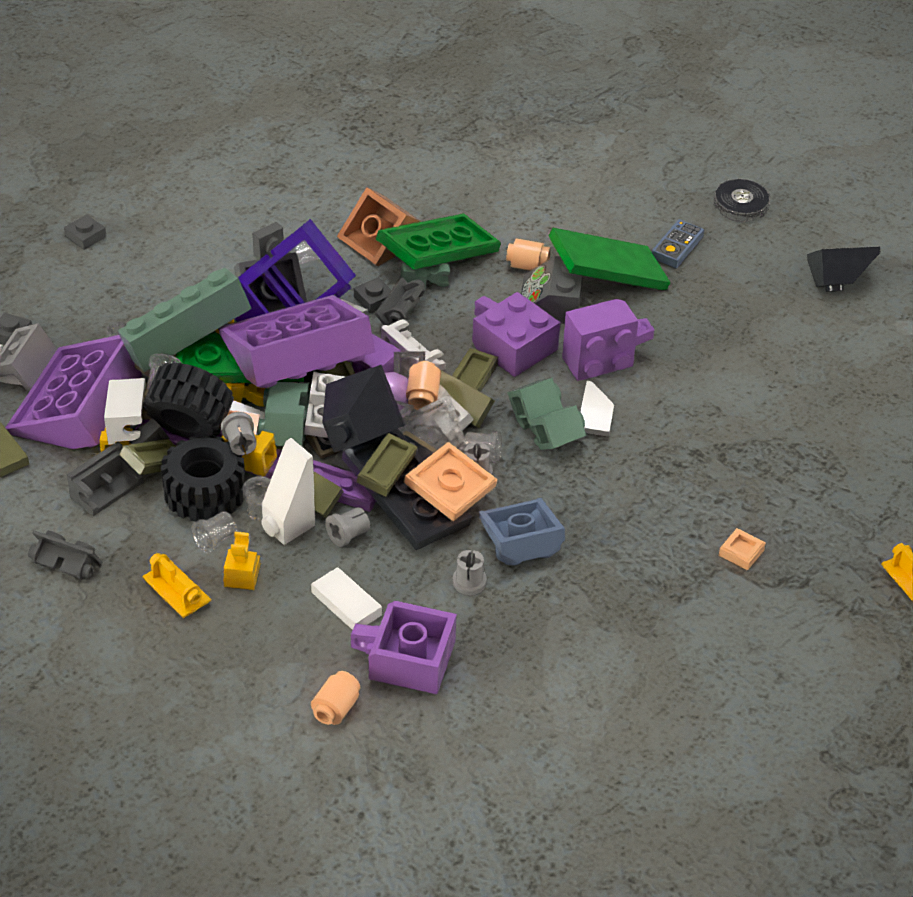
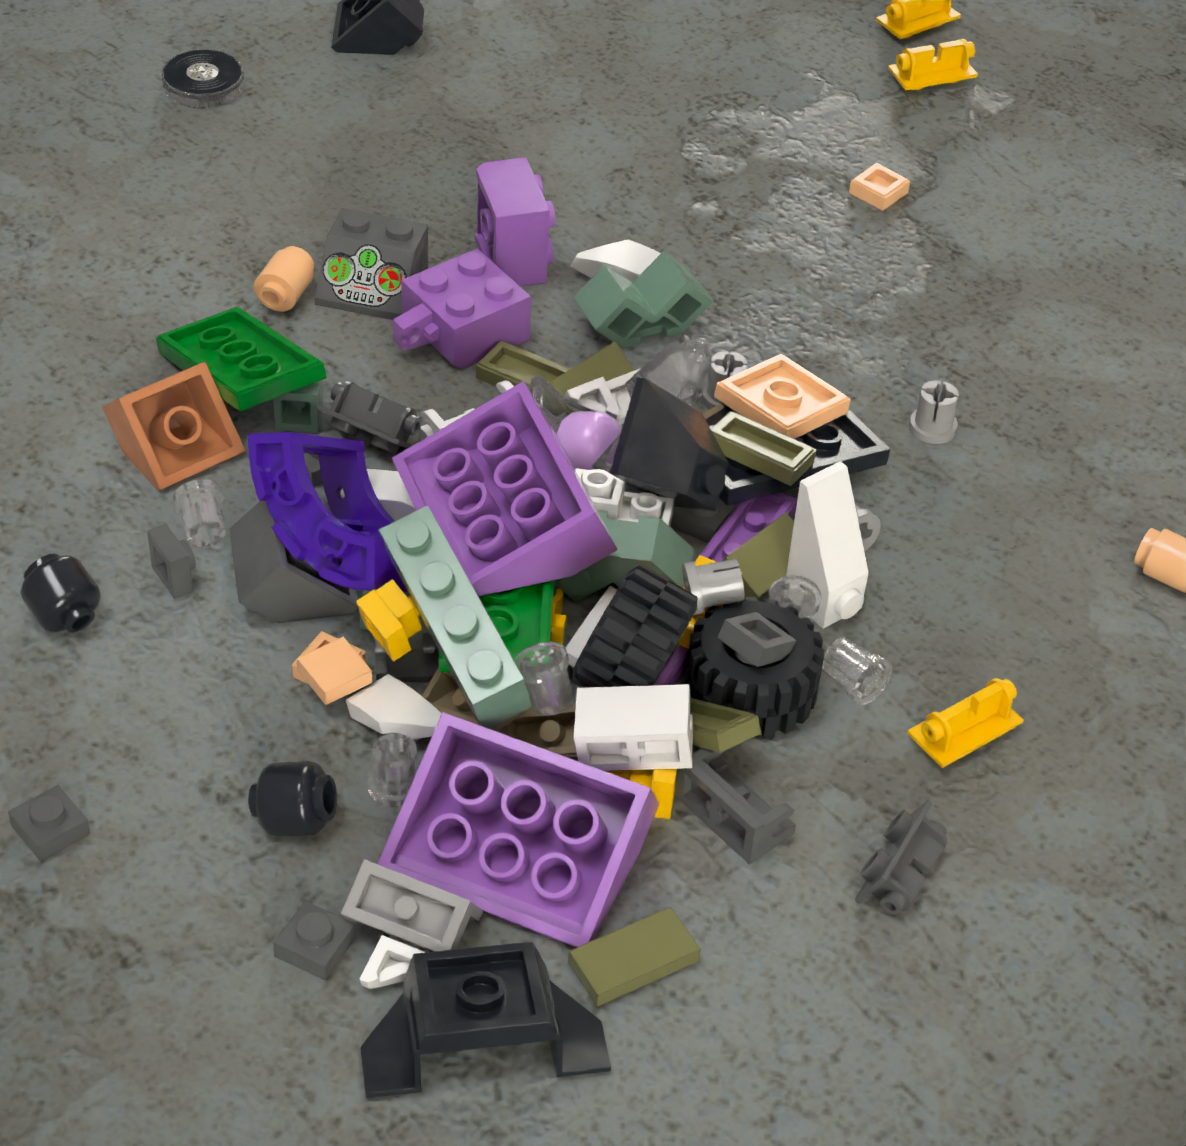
camera: 85 degrees left, 0 degrees up
(95, 306) = (293, 798): none -> black head
(197, 456) = (756, 639): none -> dark grey plate
(236, 206) = (60, 593): none -> black head
(241, 564) = (929, 644): yellow piece -> none
(346, 598) = (977, 544): white tile -> none
(408, 646) = (1089, 471): medium lavender hinge -> none
(423, 384) = (600, 389): light nougat brick -> none
(523, 531) = (863, 349): sand blue slope -> none
(608, 259) = (341, 191): green tile -> none
(677, 243) = (282, 147): tile -> none

